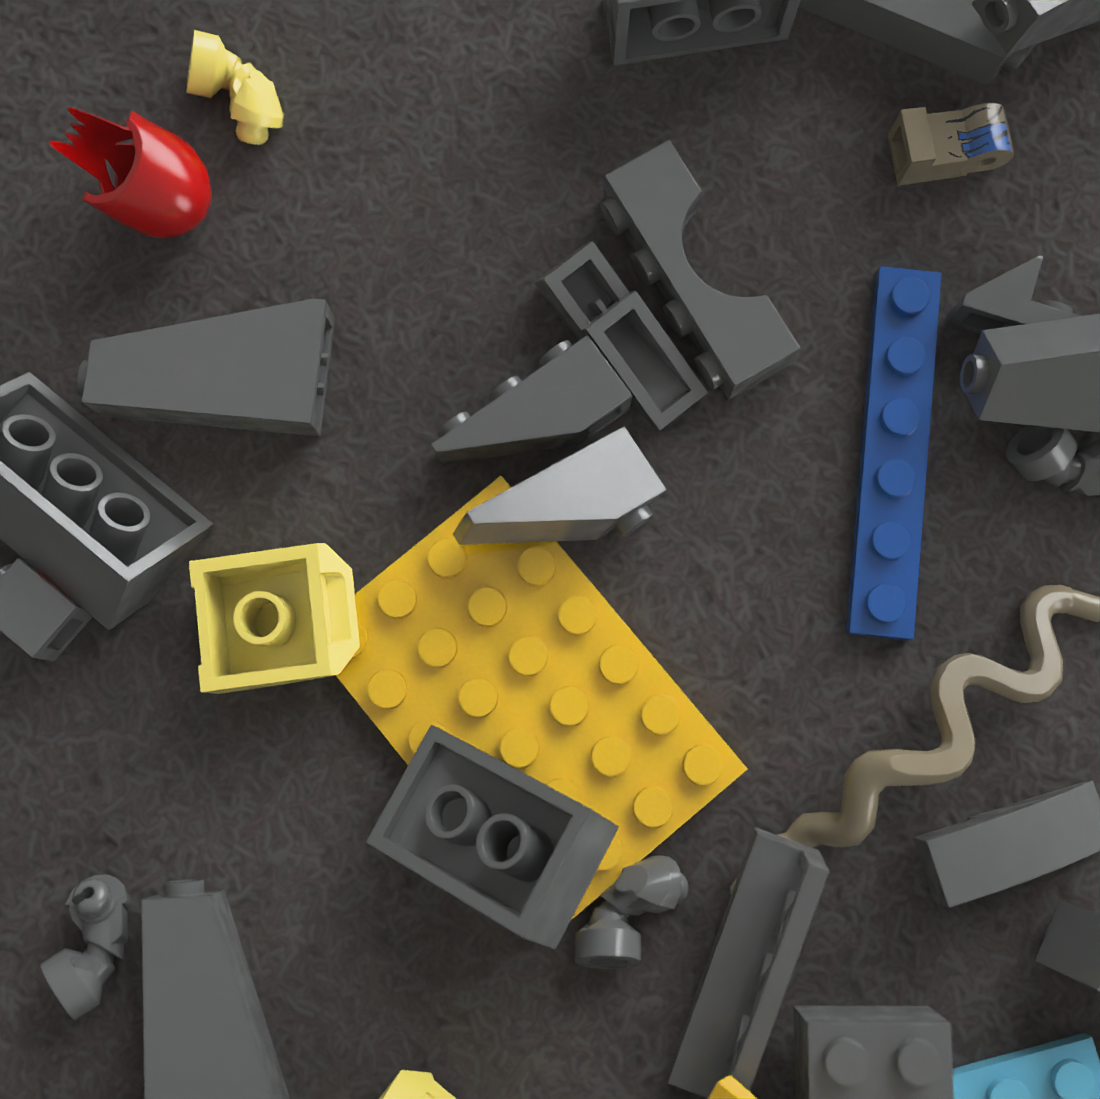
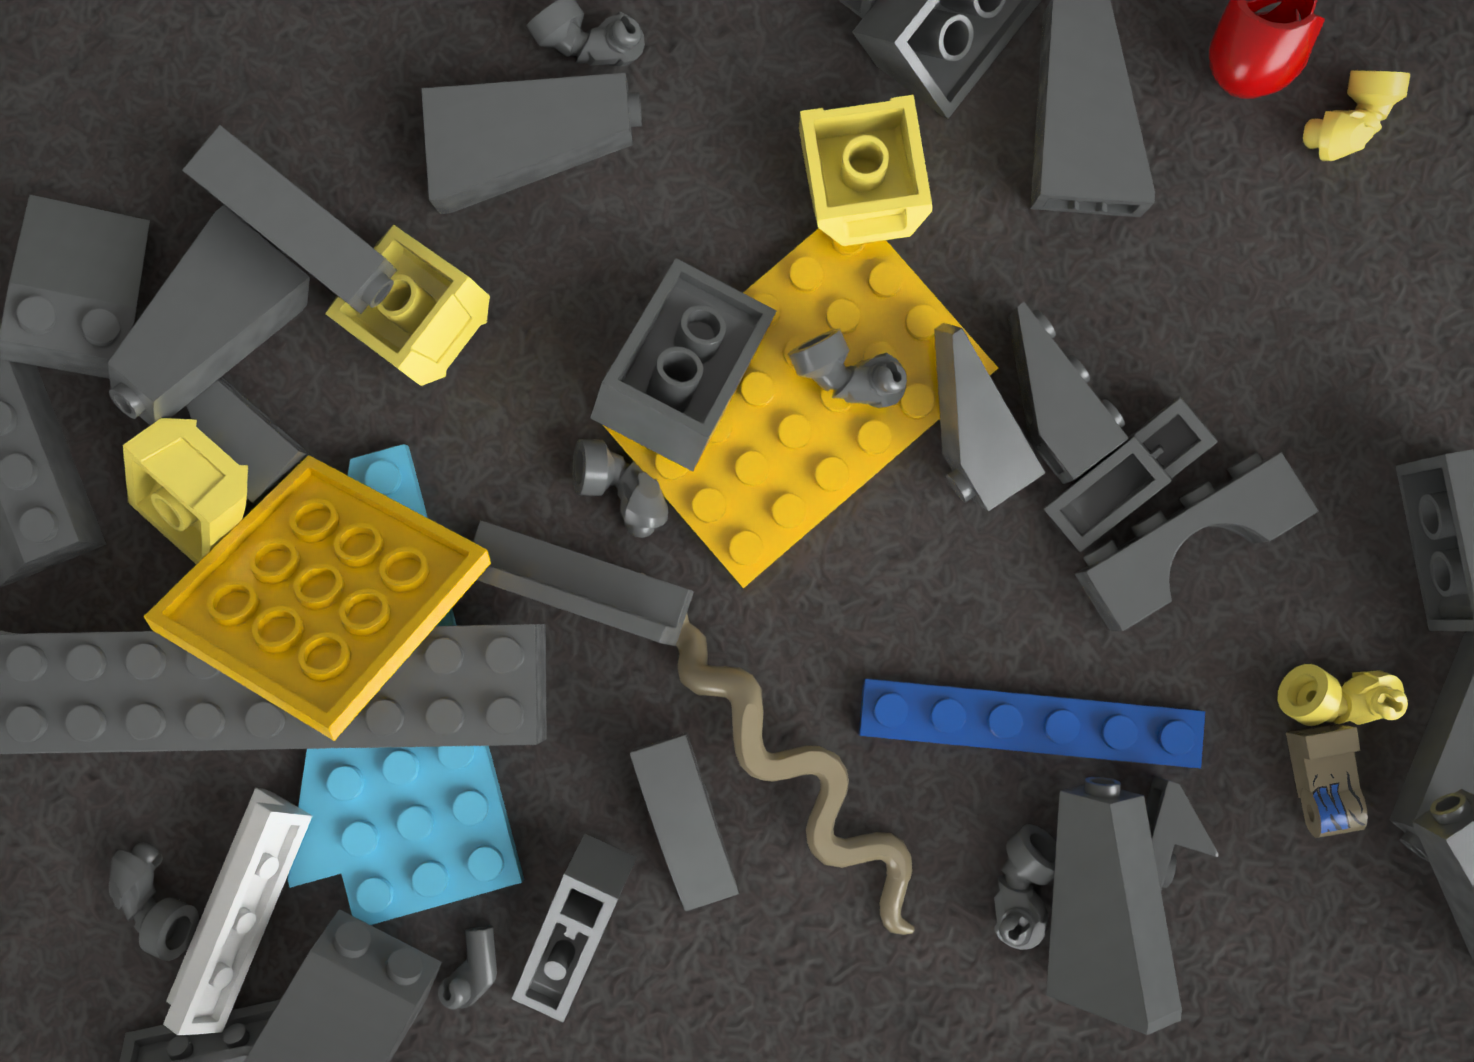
camera: 90 degrees right, 5 degrees up
(517, 619) = (871, 381): none -> dark grey arm
(863, 151) = (1316, 696): none -> light yellow arm

